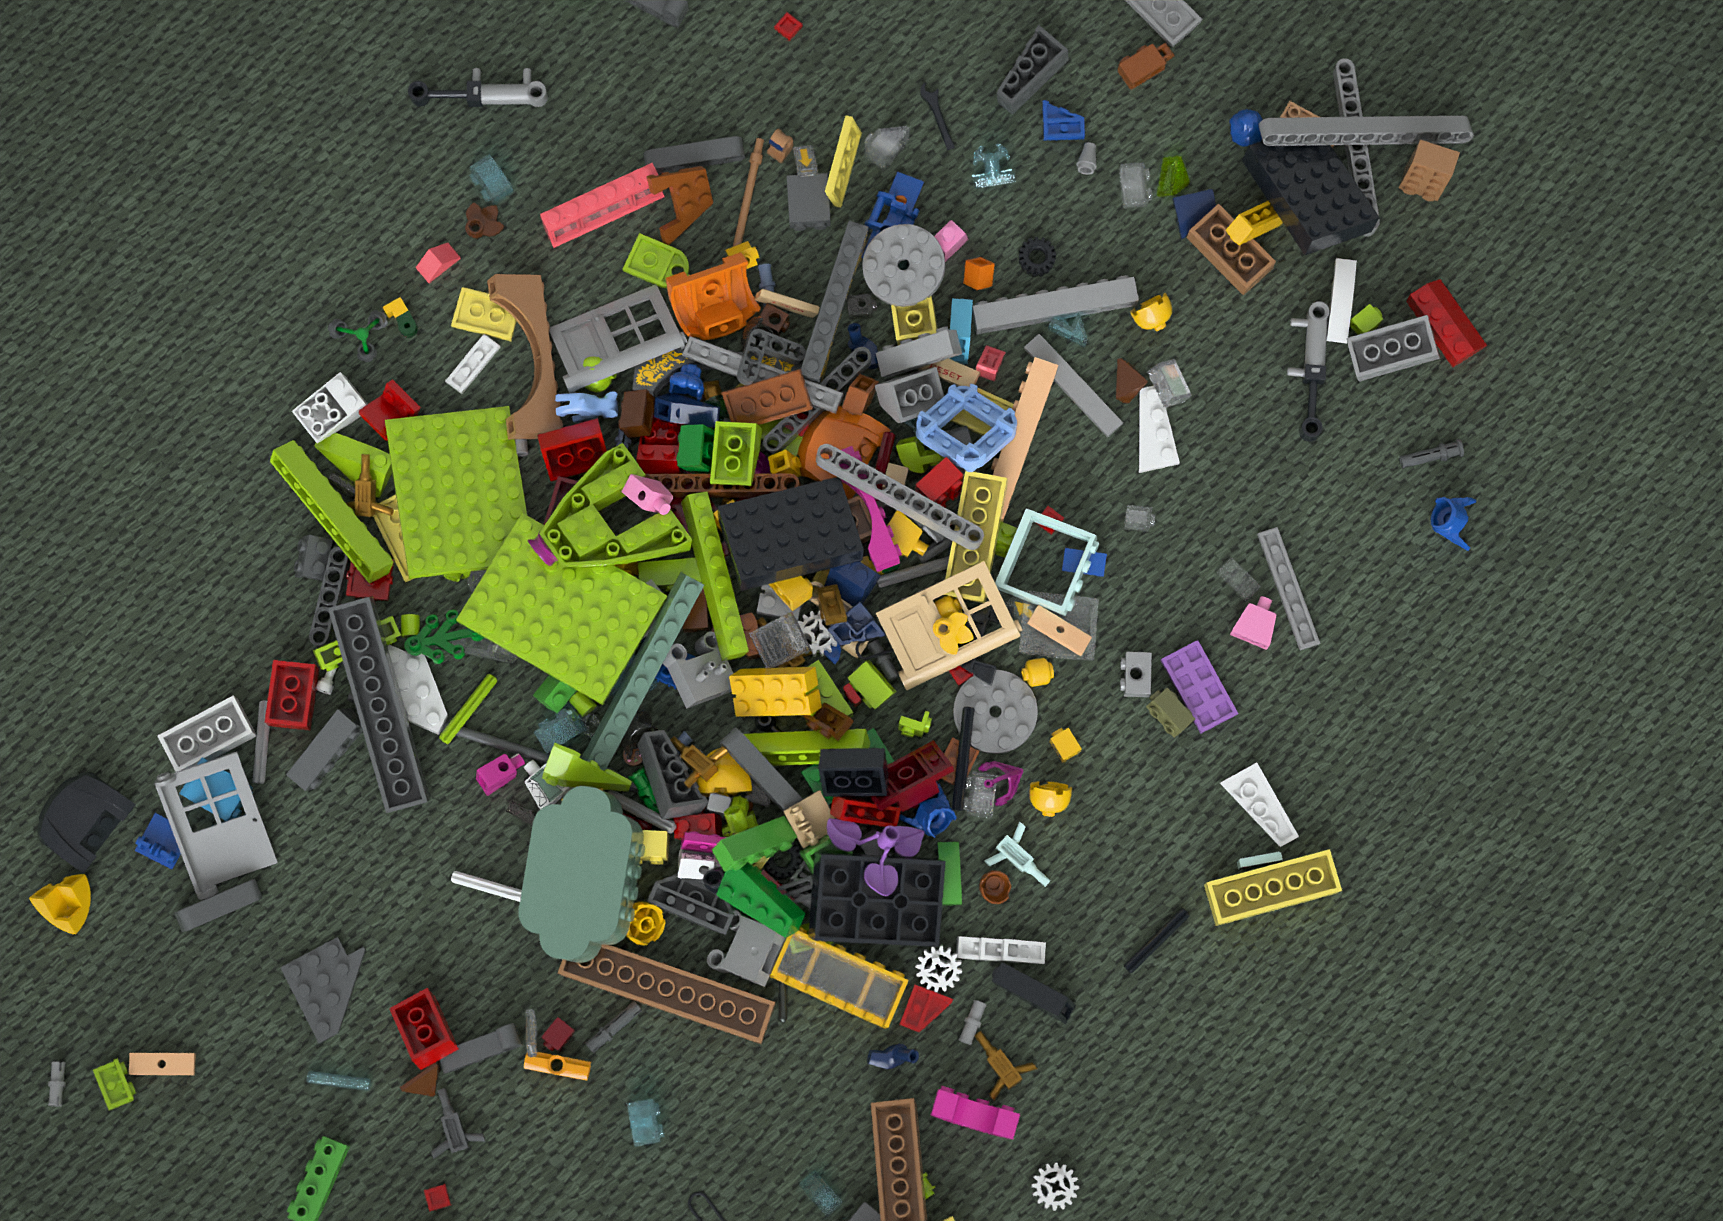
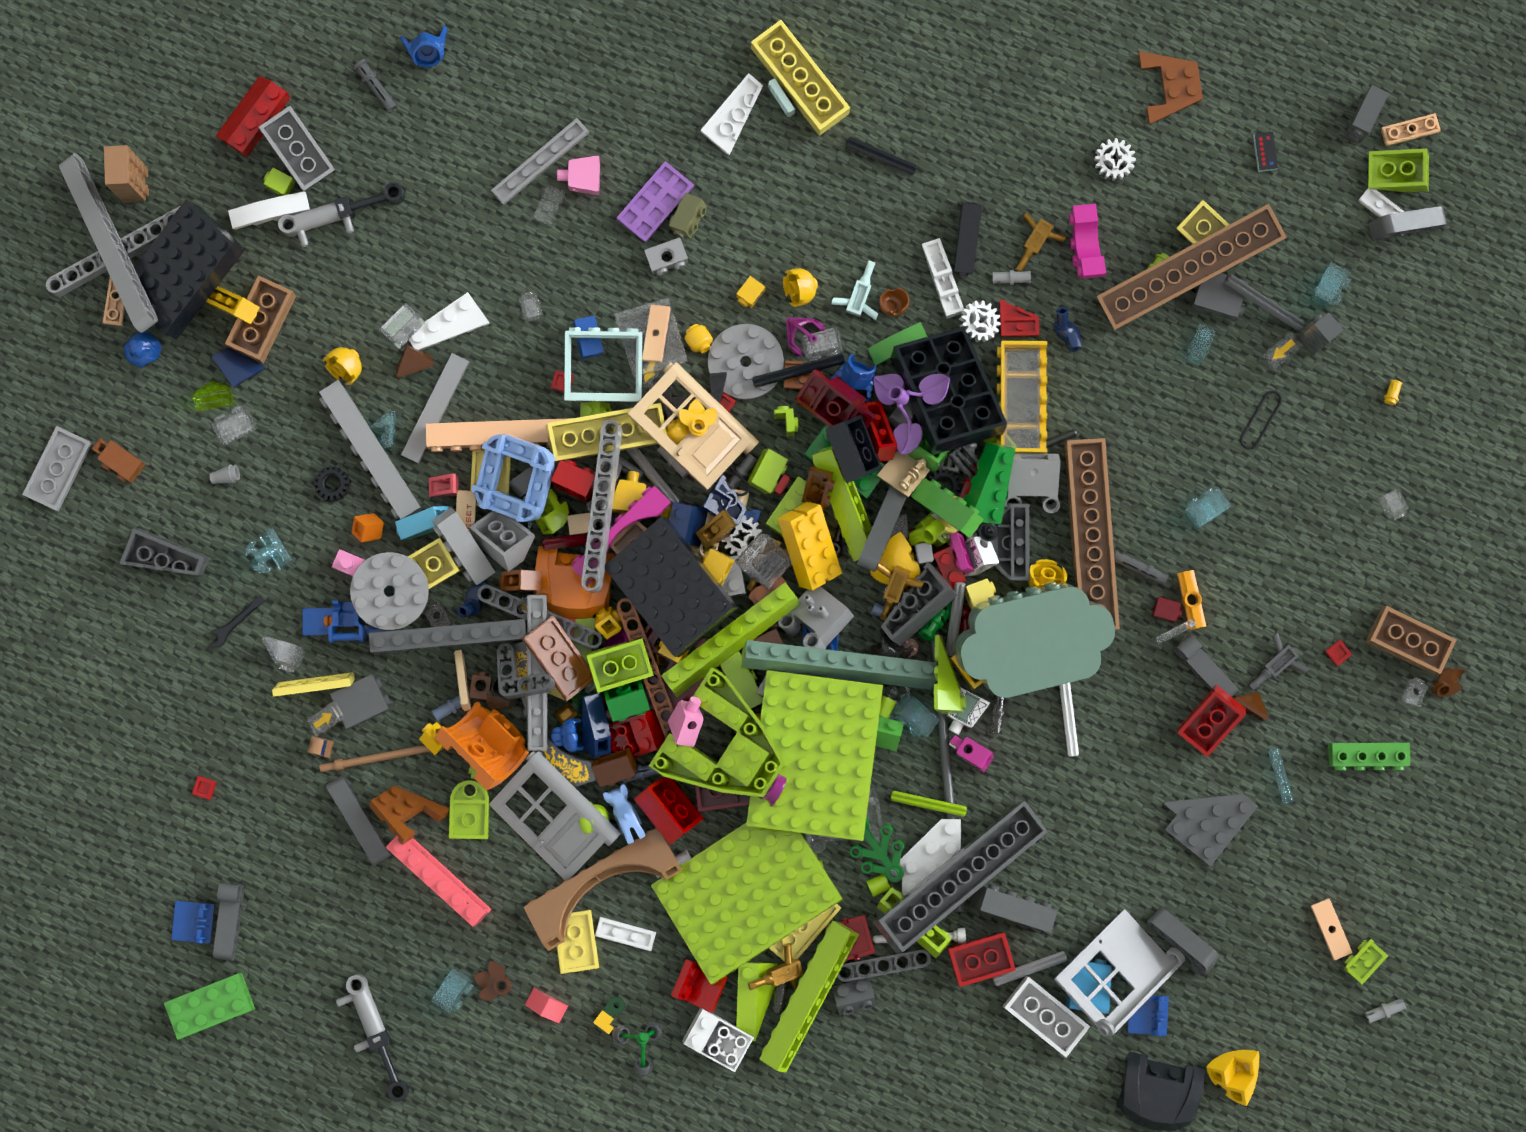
camera: 115 degrees left, 5 degrees up
(1061, 124) = (201, 511): blue wing -> none

